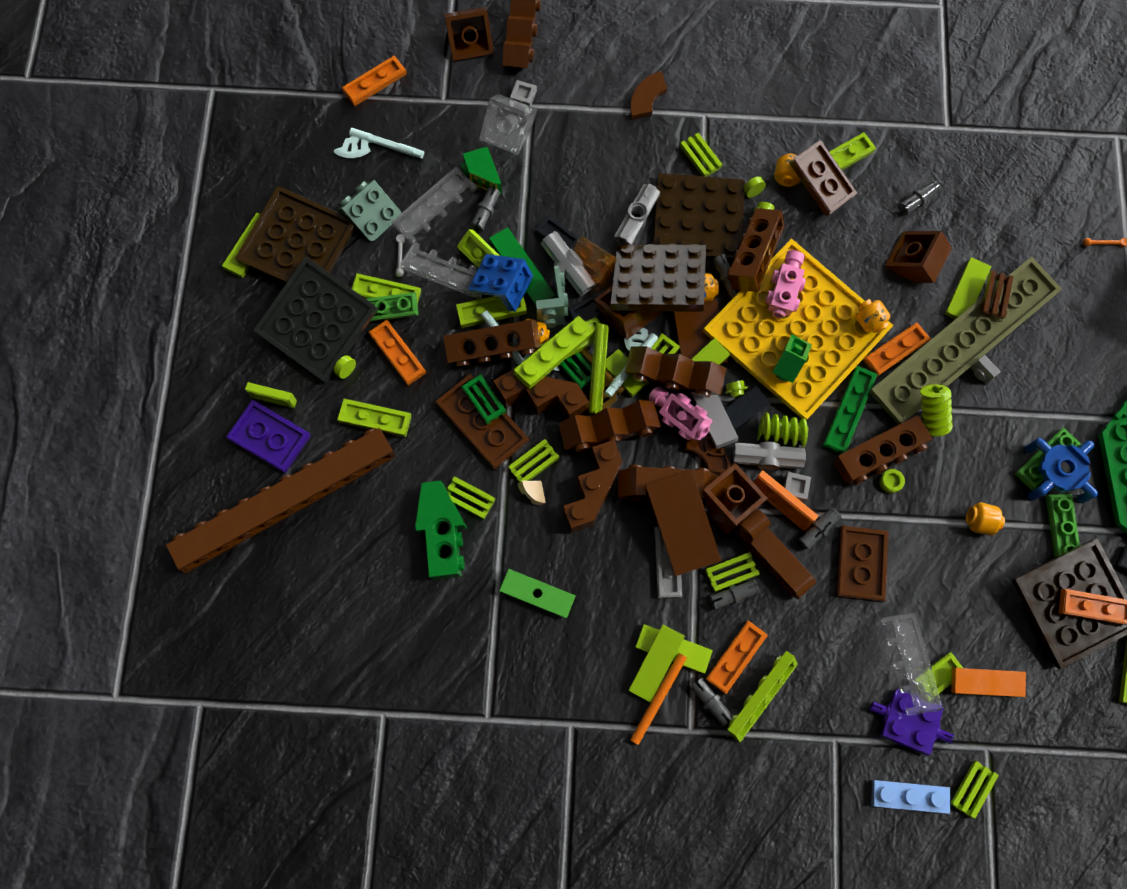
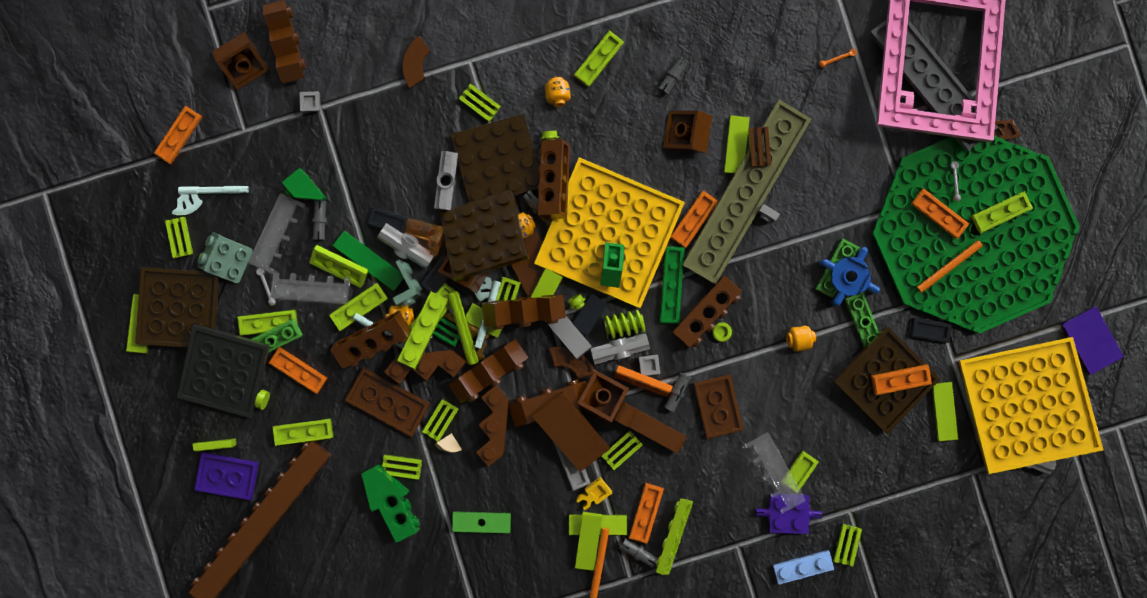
camera: 15 degrees left, 15 degrees up
(322, 172) = (175, 254): none -> lime tile
(494, 414) = (377, 392): green tile -> none
(502, 278) = (358, 284): blue bracket -> none
(507, 123) = (307, 135): clear slope -> none
(684, 420) = (541, 342): bright pink brick -> none
(686, 608) = (596, 492): none -> yellow plate
(734, 594) = (629, 467): dark grey pin -> none
(754, 187) = (533, 118): lime tile -> none
(785, 286) = (588, 207): bright pink brick -> none
(823, 178) = (587, 91): tile -> none
(872, 316) = (665, 204): light orange head -> none
(936, 409) = (738, 265): lime piece -> none
(988, 682) = (836, 464): orange tile -> none

